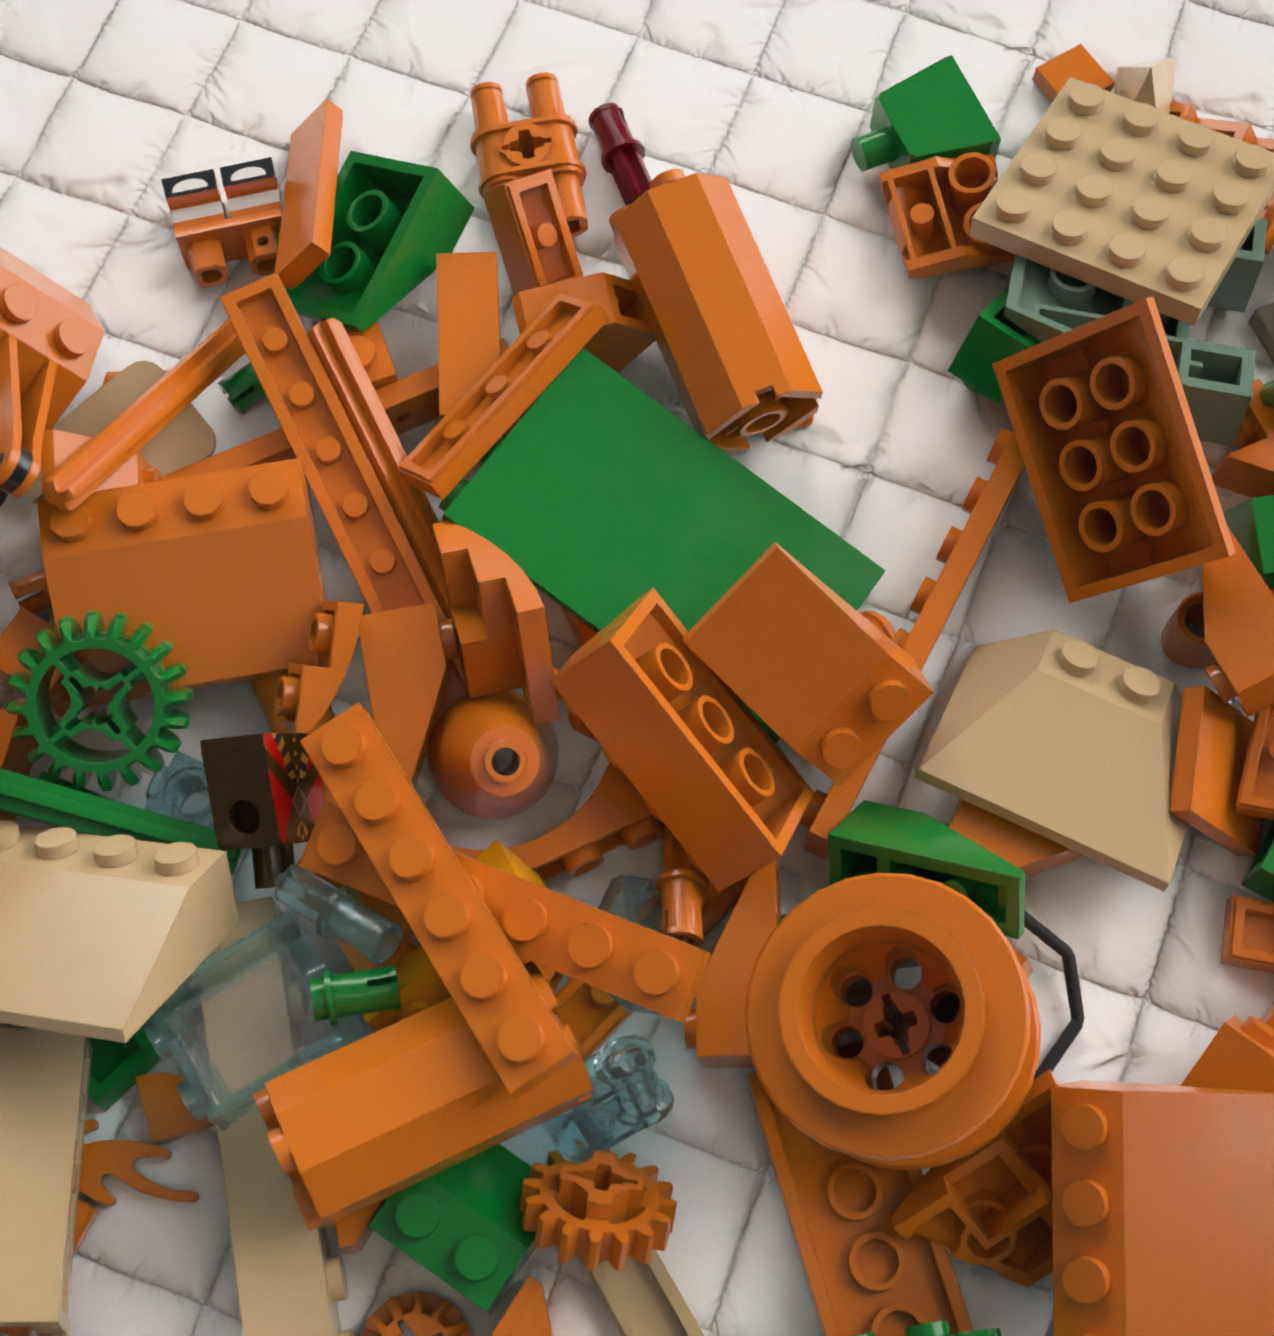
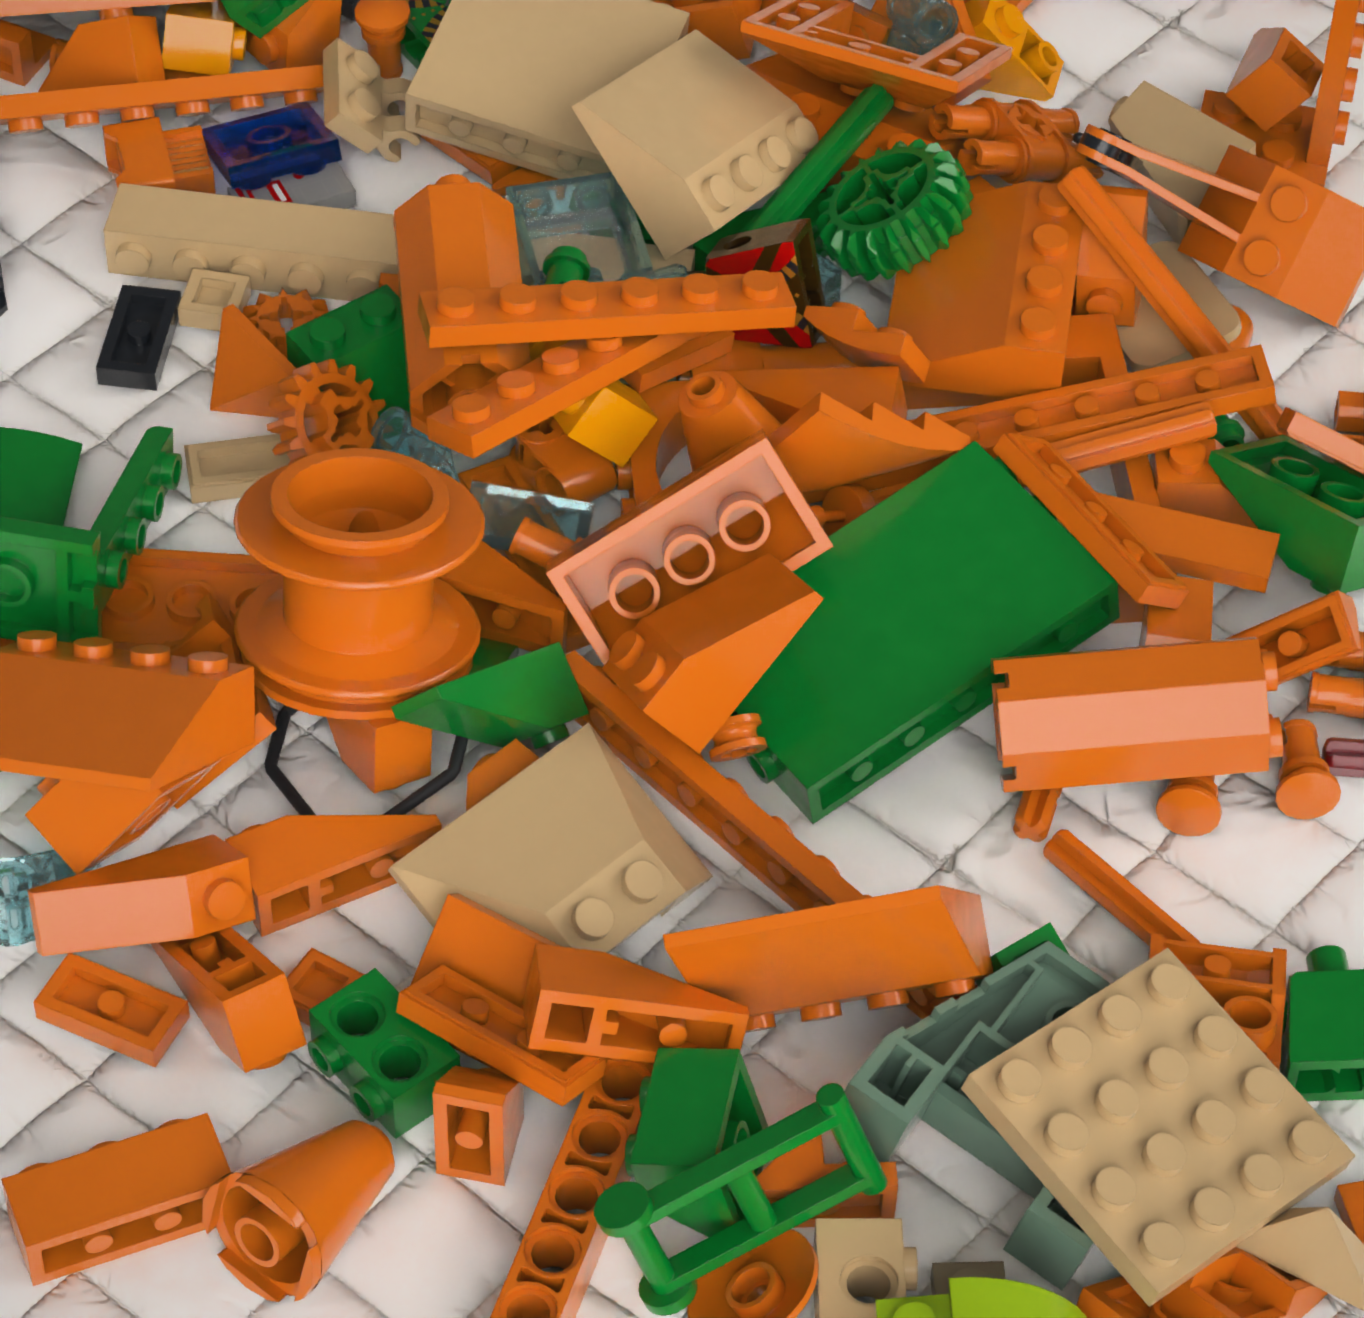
camera: 110 degrees right, 20 degrees down
(857, 316) = (1111, 889): none -> orange axle
(1144, 991) = (324, 861): none -> orange slope

